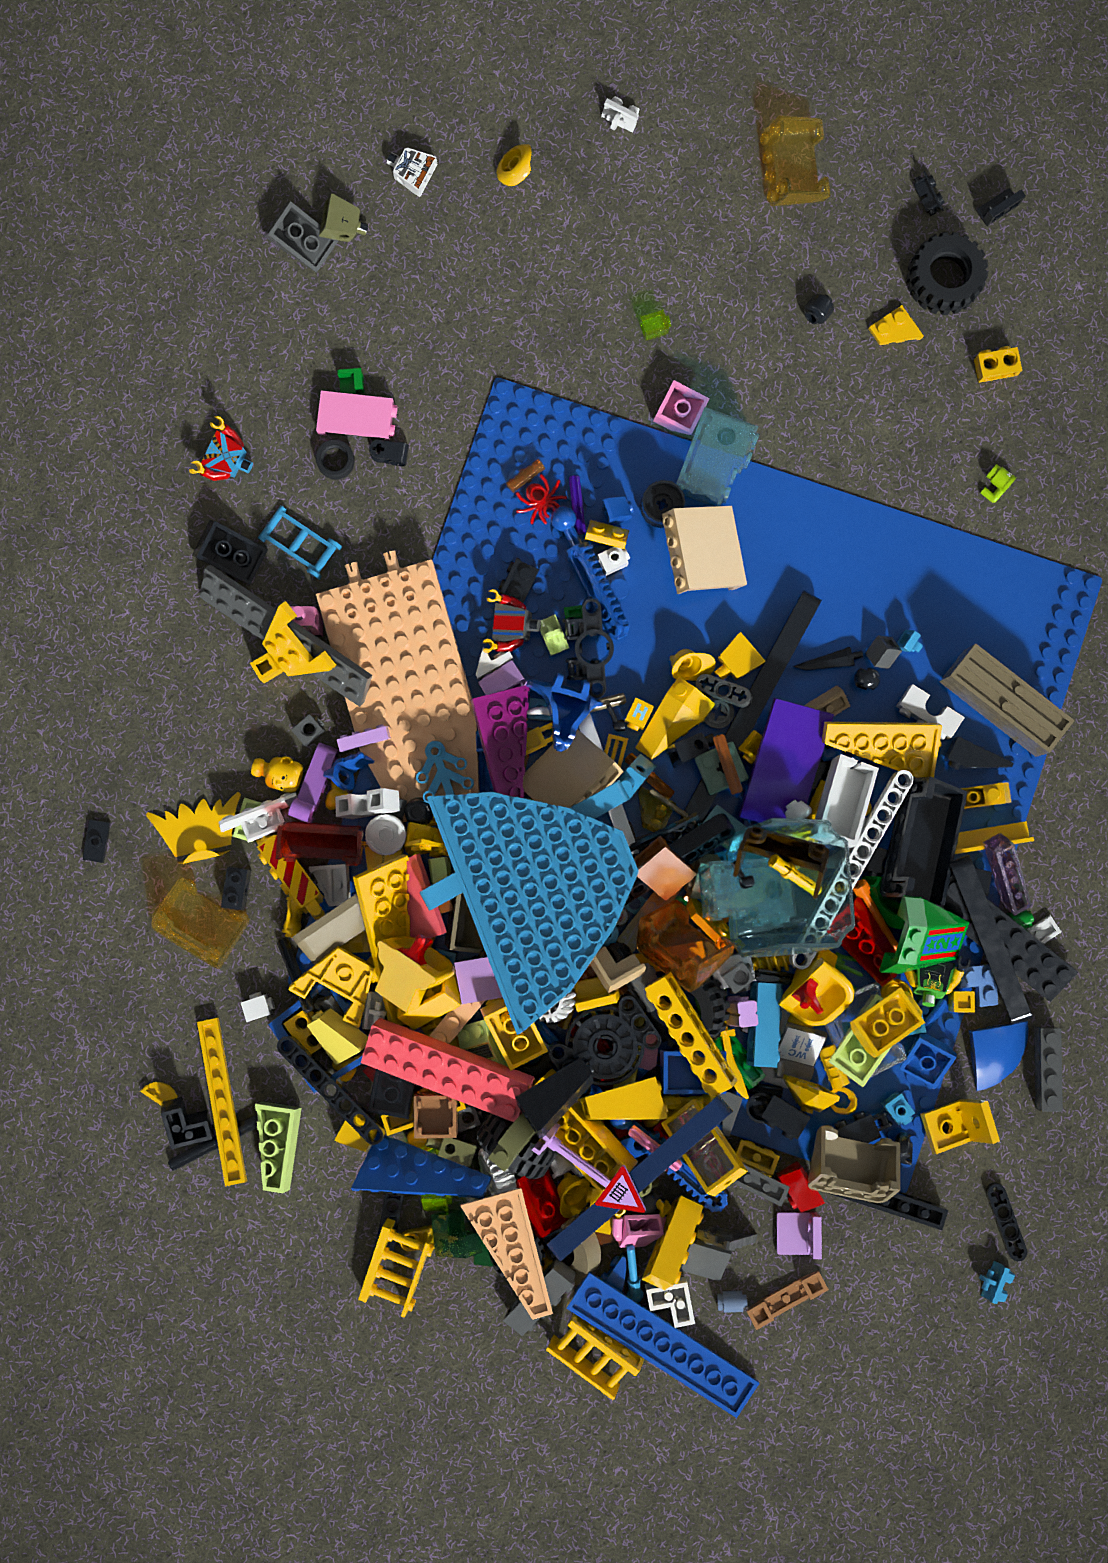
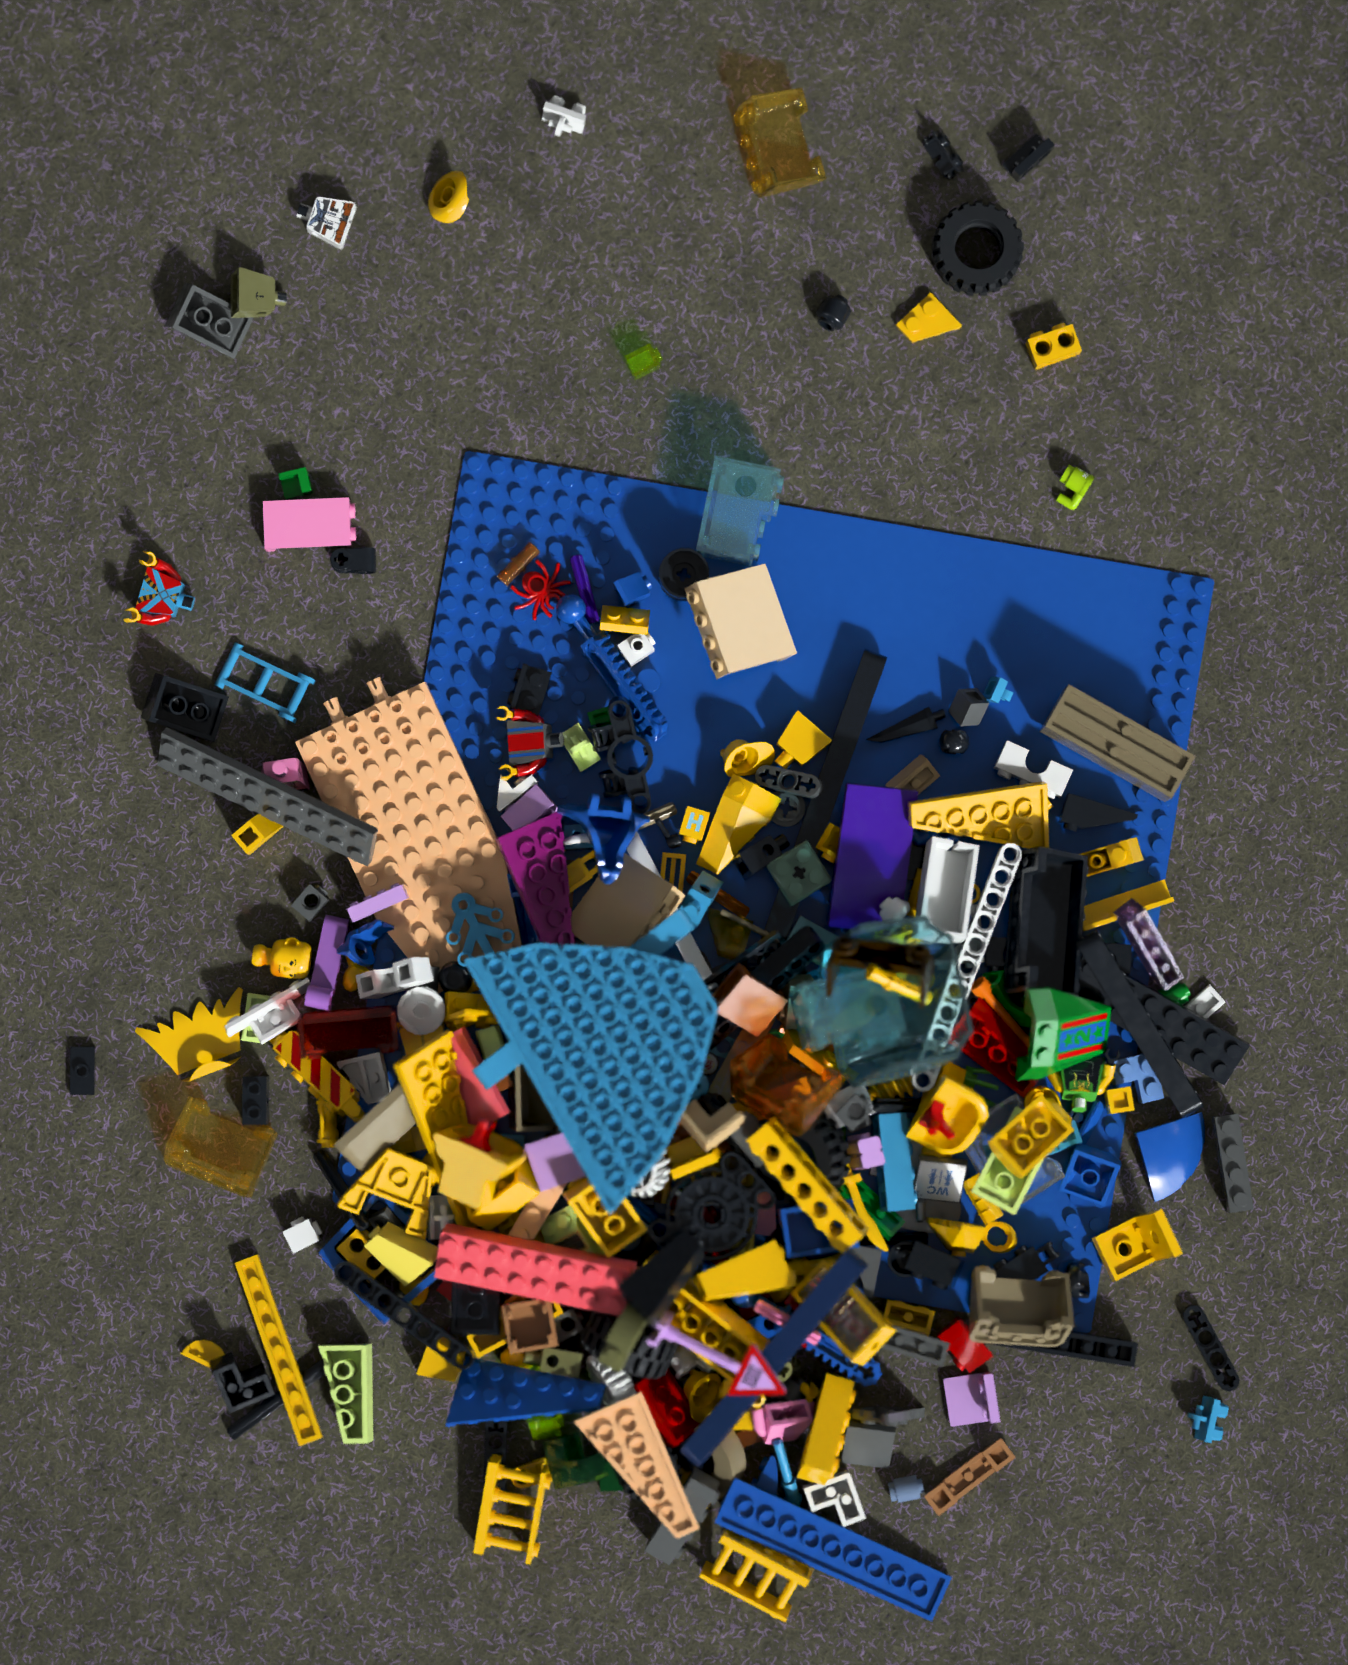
camera: 10 degrees left, 0 degrees up
(287, 648) = (275, 814): yellow wing -> none
(330, 444) = (291, 560): black tyre -> none
(681, 409) = (689, 457): bright pink slope -> none
(727, 764) = (804, 868): dark orange axle -> none
(744, 881) = (842, 1000): black hand -> none
(892, 1105) = (1056, 1234): dark azure brick -> none

